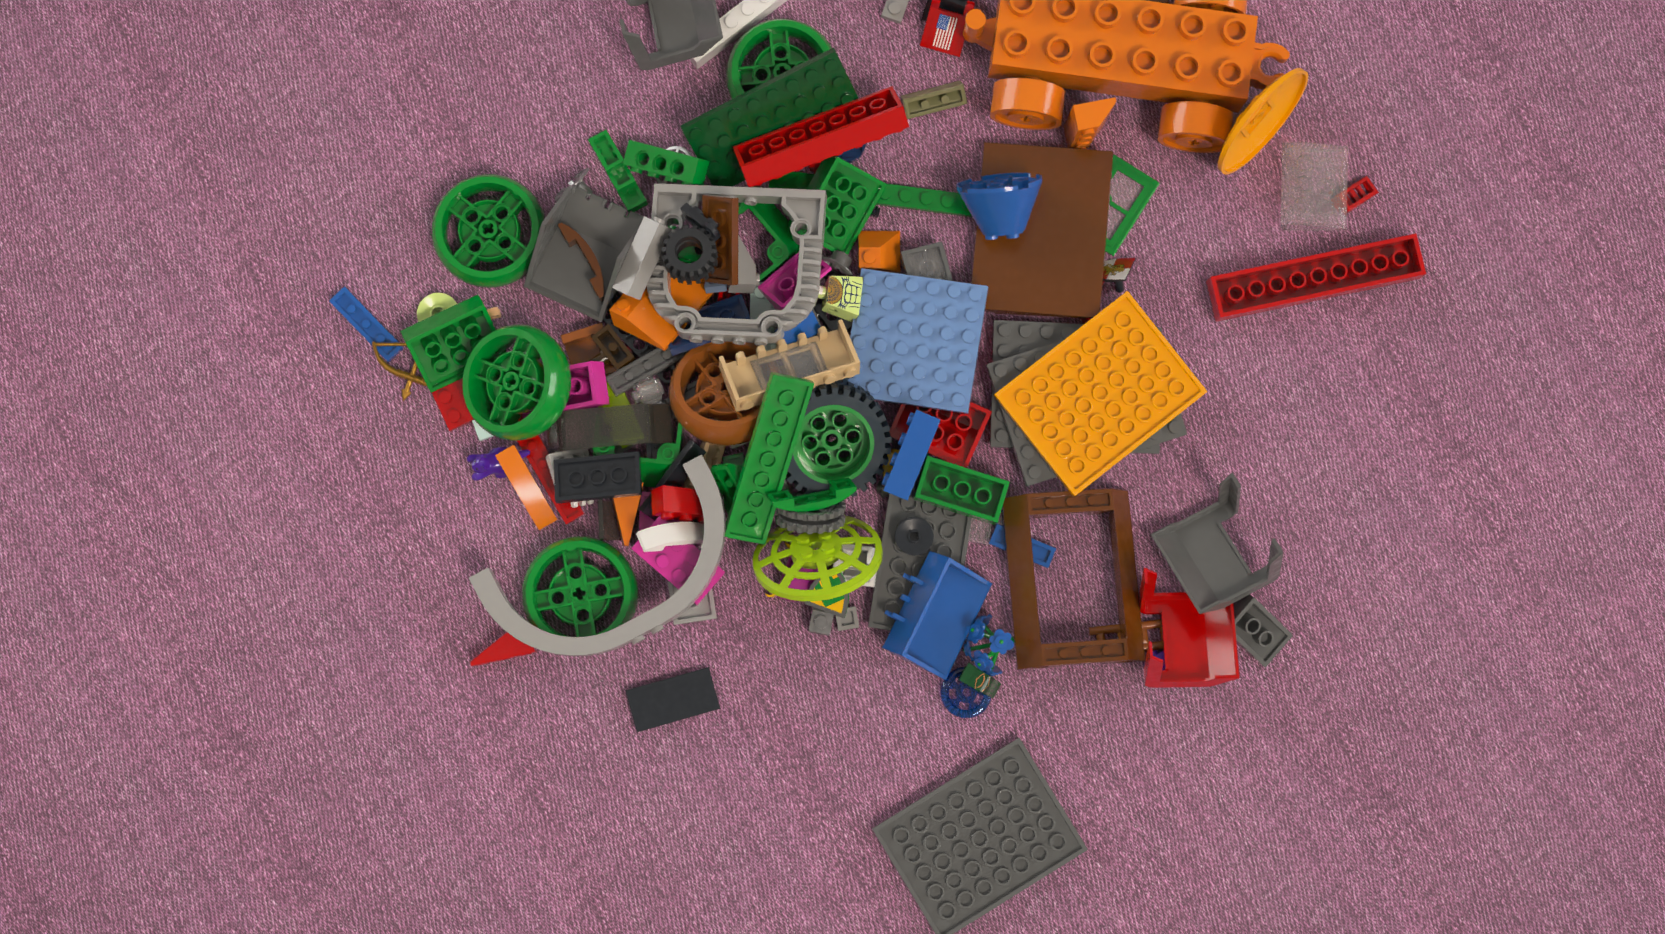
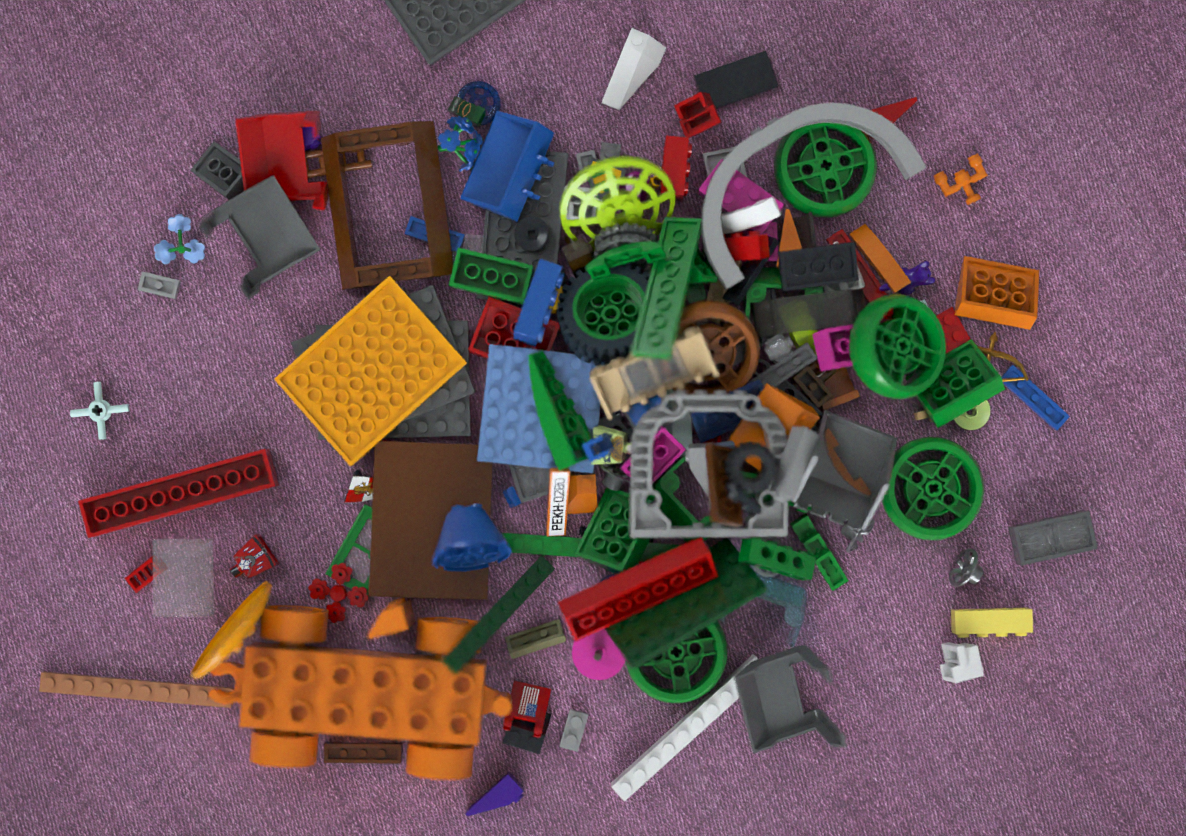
camera: 175 degrees left, 5 degrees up
(360, 169) = (1052, 537): none -> clear brick
(396, 442) = (997, 293): none -> orange slope
(424, 571) = (963, 179): none -> orange piece
(434, 85) = (991, 621): none -> light yellow brick
(455, 142) = (968, 569): none -> flat silver wheel
(472, 41) = (961, 662): none -> white plate
(656, 125) = (788, 596): none -> clear light blue windscreen
(719, 659) = (697, 114): none -> red plate
(748, 602) = (675, 165): none -> red brick
(786, 723) = (637, 61): none -> white wedge
(854, 290) = (598, 447): none -> blue window
(863, 509) = (578, 254): none -> dark brown brick
(869, 71) = (597, 656): none -> dark pink piece
(895, 323) = (560, 423): none -> green wedge
(902, 240) = (557, 502): none -> tile
(952, 251) = (511, 497): none -> blue tile
(973, 120) = (497, 615): none -> dark green plate
(1146, 162) = (338, 592): none -> red plant
(1236, 203) = (253, 558): none -> red torso
(1295, 545) = (192, 251): none -> light blue plant
(1331, 508) = (159, 285): none -> light grey plate
(1376, 74) = (129, 689): none -> nougat plate
(1396, 379) = (99, 403): none -> light aqua bar

